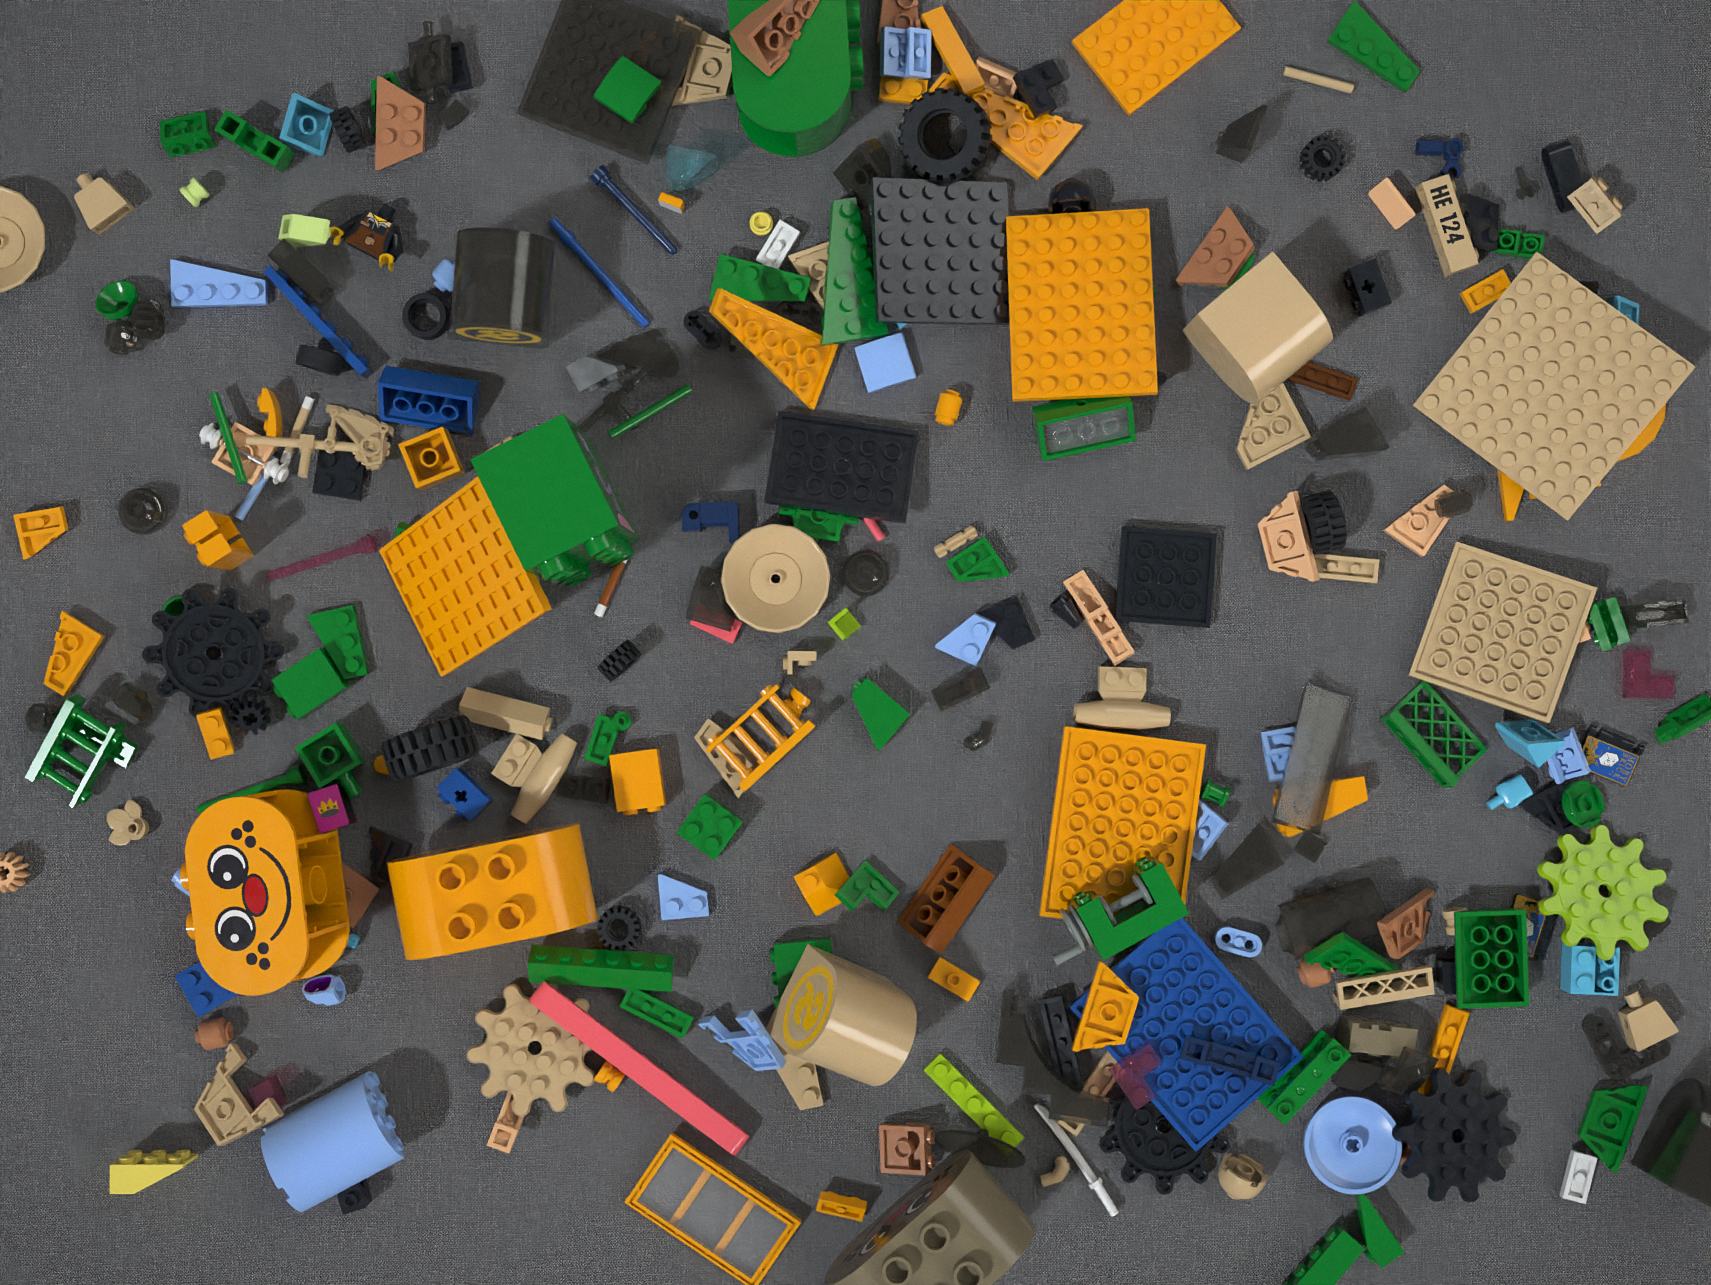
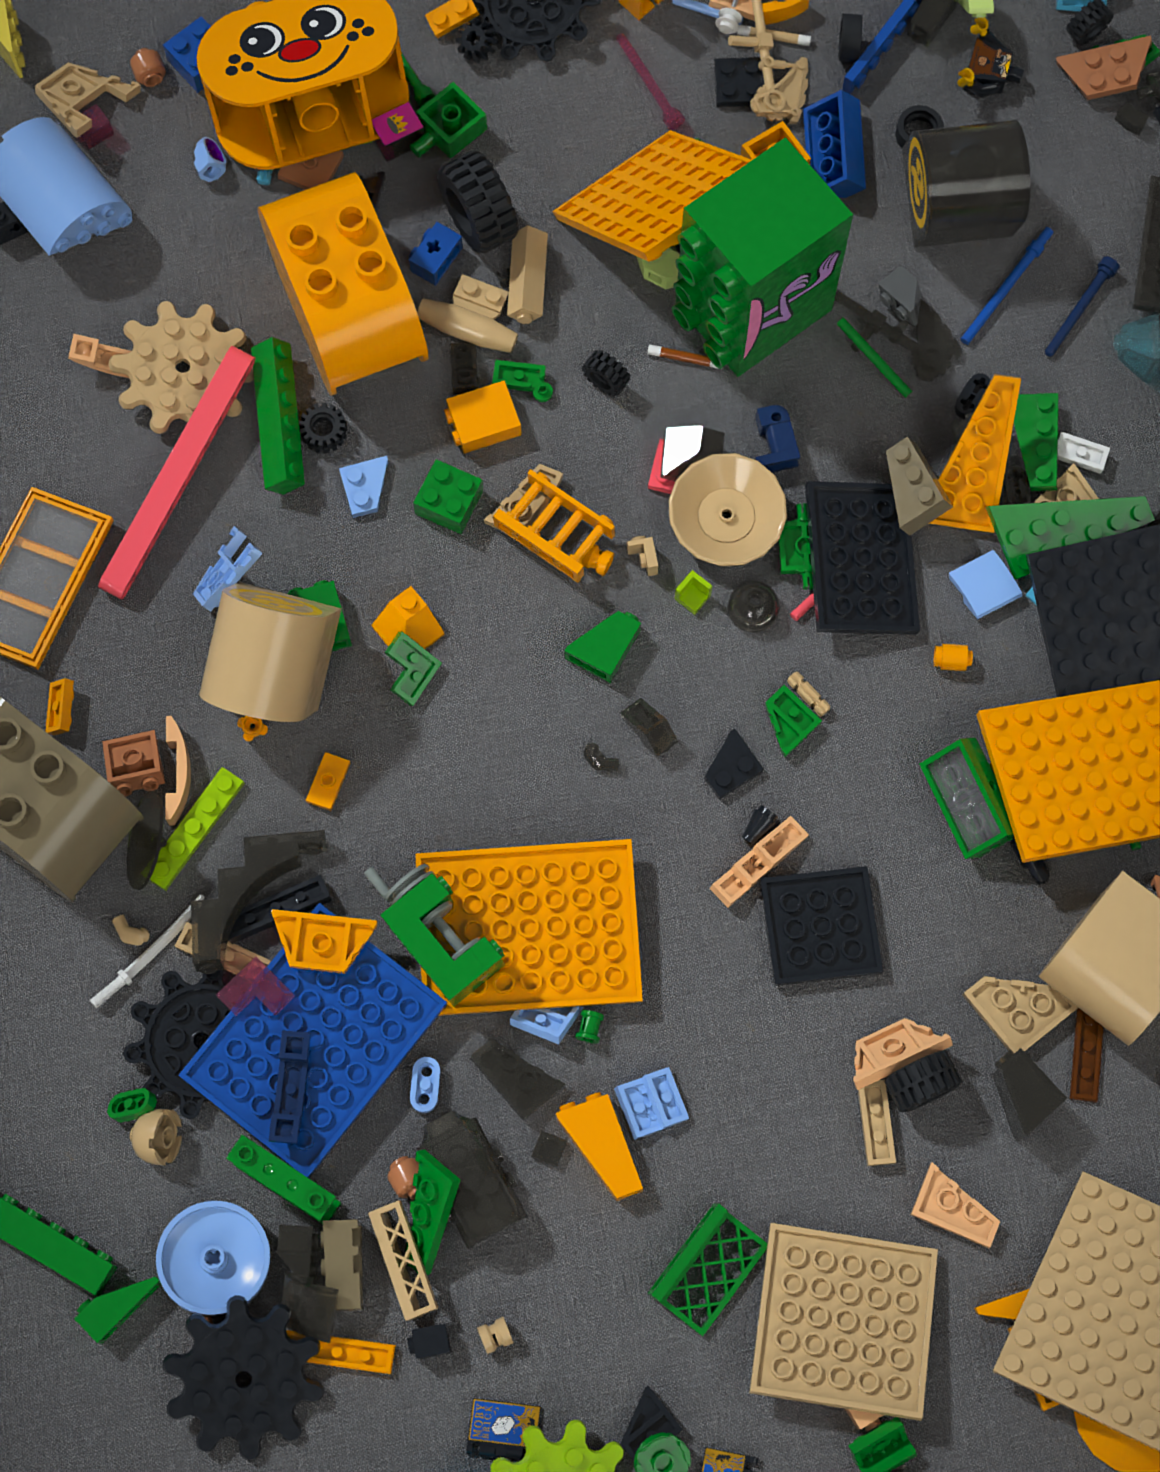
camera: 80 degrees right, 15 degrees down
(310, 684) = (520, 91): green brick -> none
(342, 639) = (570, 114): green wing -> none
(610, 1076) = (163, 445): light orange wheel -> none
(657, 1012) = (240, 482): green plate -> none
(671, 202) = (1099, 339): light orange tile -> none
(761, 223) = (1101, 432): light yellow plate -> none
(788, 405) = (915, 487): none -> dark tan wedge
(801, 1080) = (190, 641): tan wing -> none
(889, 1108) = (176, 801): none -> light nougat slope
(945, 899) = (414, 755): dark orange slope -> none
(968, 639) = (705, 725): light blue wing -> none
(1121, 702) = (666, 904): tan plate -> none
(1210, 1194) = (131, 1105): none -> green plate
(1311, 759) = (650, 1122): clear smoke arch -> none
(1406, 925) = (479, 1269): nougat wing -> none
(1453, 503) = (980, 1231): clear smoke brick -> none
(1491, 958) = (459, 1377): green slope -> none
(1510, 793) = (657, 1372): medium azure piece -> none
(1529, 740) = (726, 1377): medium azure slope -> none
(1569, 759) = (714, 1427): light blue bracket -> none

